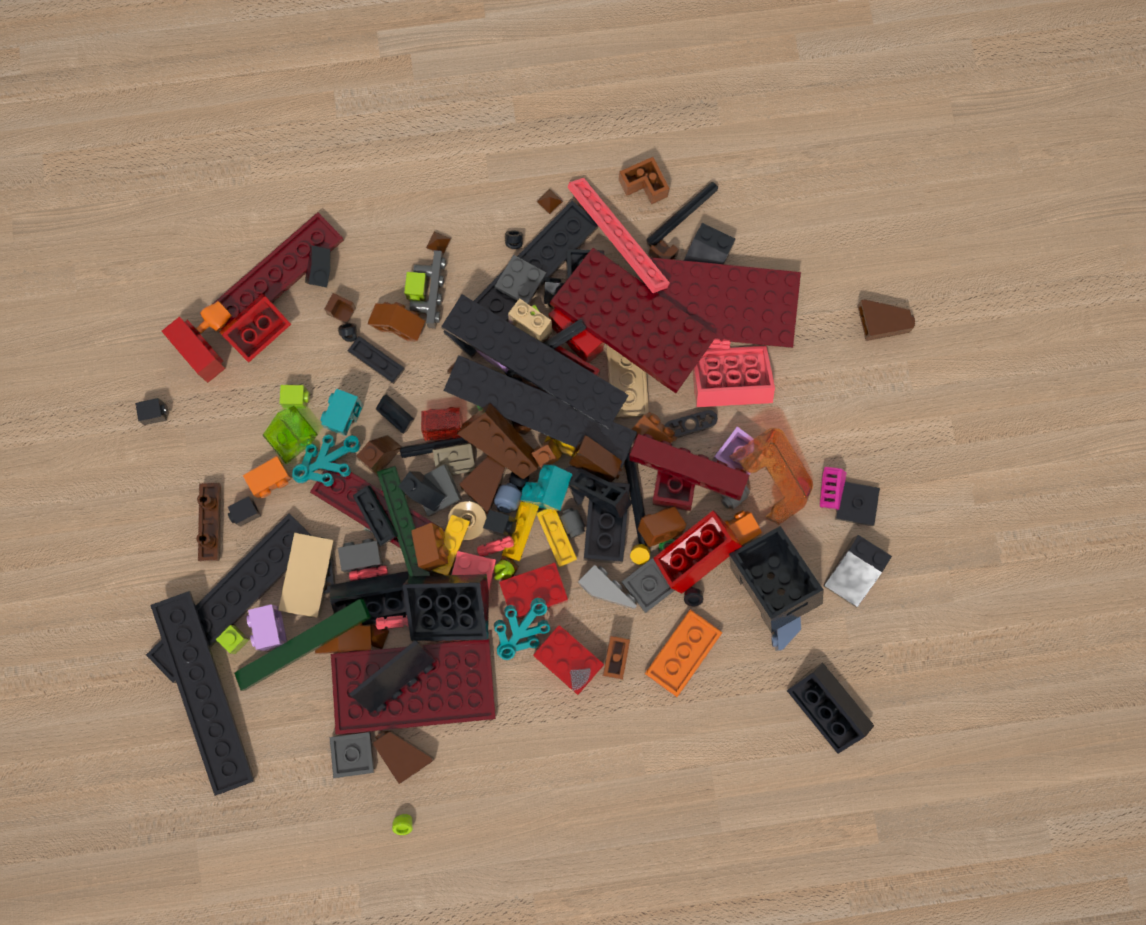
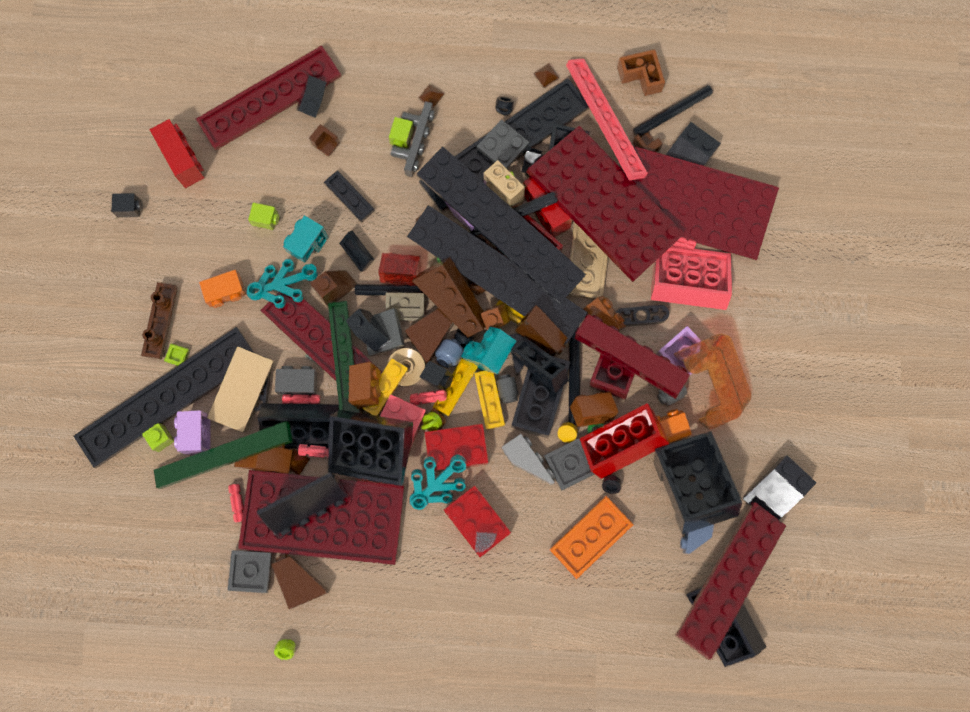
camera: 15 degrees right, 0 degrees up
(202, 693) = (119, 483): black plate -> none
(214, 317) = (203, 126): orange piece -> none
(233, 553) = (176, 354): none -> lime tile
(243, 511) = (193, 317): black brick -> none
(255, 328) = (239, 143): red brick -> none
(289, 434) = (252, 251): clear neon green slope -> none
(324, 689) = (236, 502): none -> coral axle
(346, 330) = (327, 162): black tile -> none
(375, 515) = (318, 345): black tile -> none
(396, 320) = (376, 161): dark orange brick -> none
(616, 657) = (524, 528): dark orange brick -> none
(826, 480) = (766, 394): dark pink slope -> none
(827, 669) = (730, 581): none -> dark red plate
(858, 504) = (791, 424): black plate -> none
(884, 320) = (852, 250): reddish brown slope -> none

